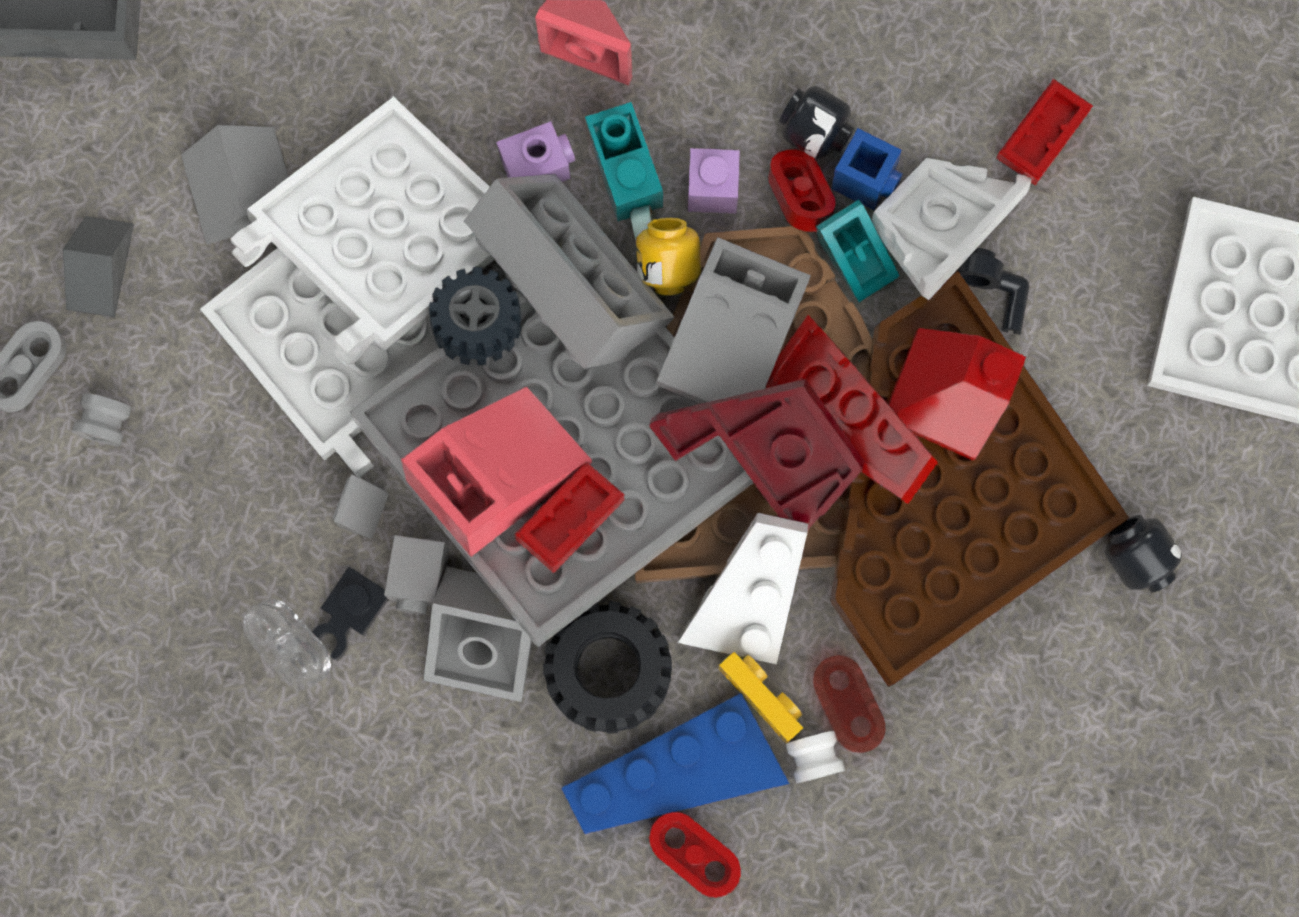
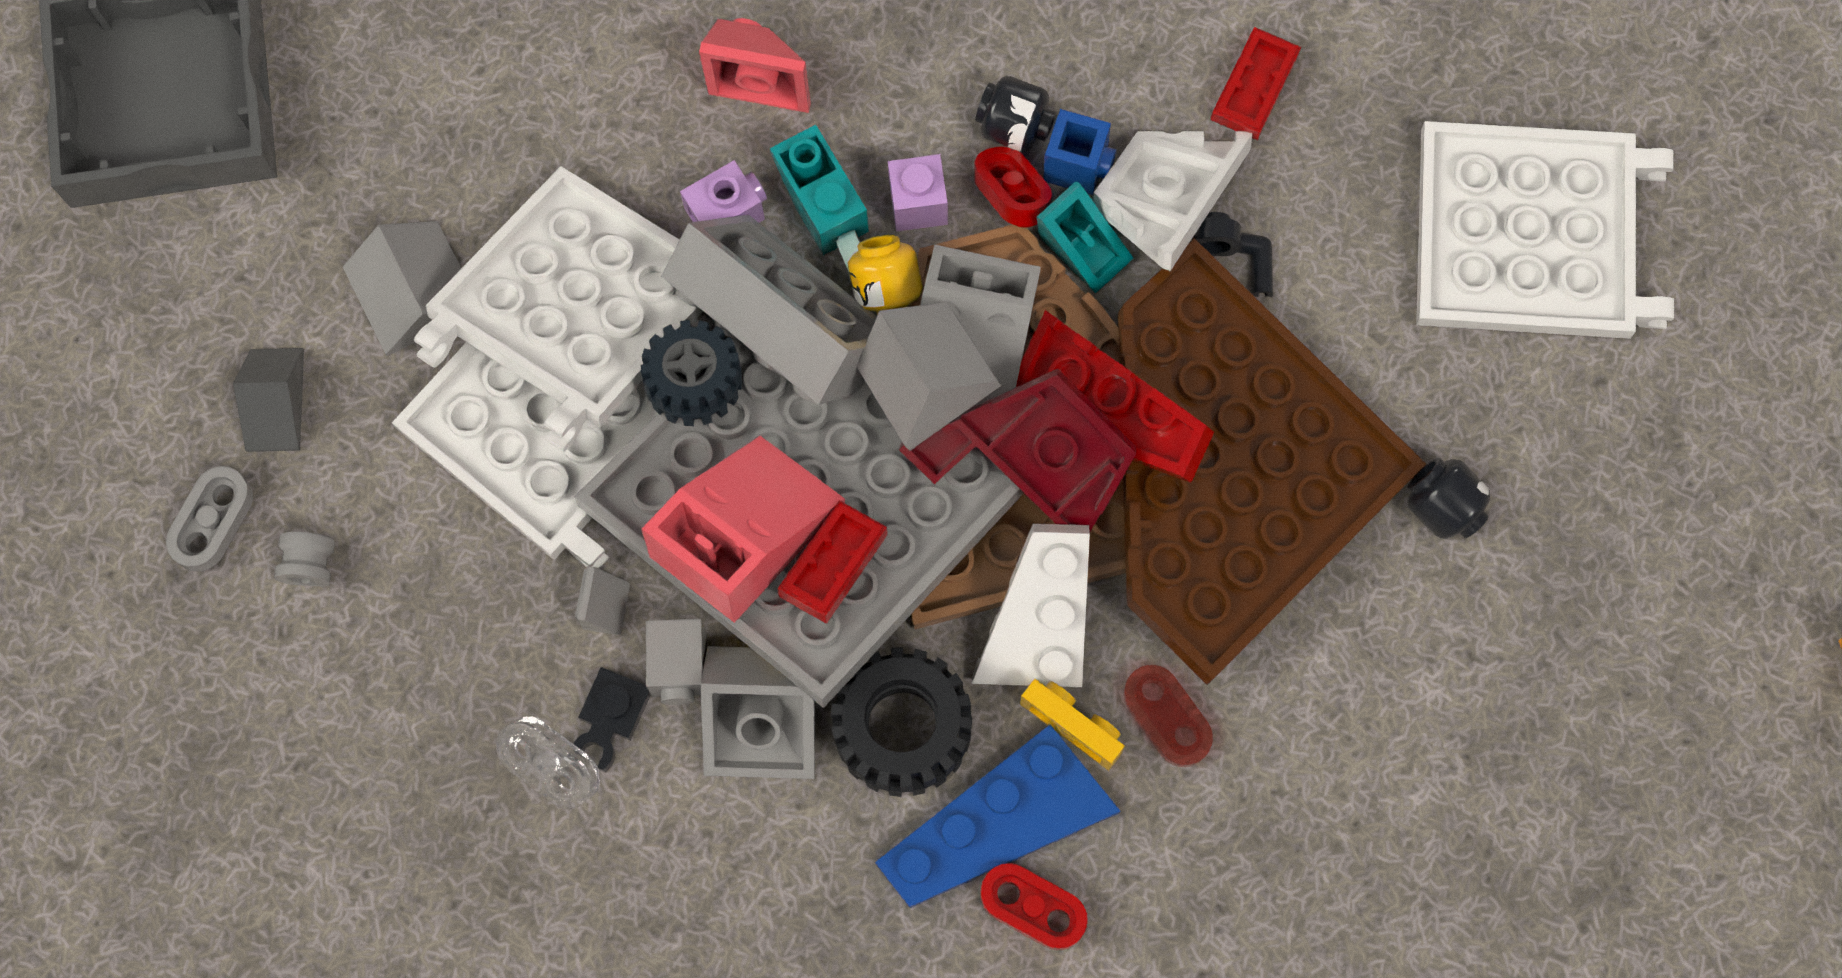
camera: 10 degrees left, 5 degrees down
(685, 356) = (923, 369): none -> light grey slope
(815, 757) = (1142, 777): white wheel -> none
(955, 388) = (1217, 356): red slope -> none

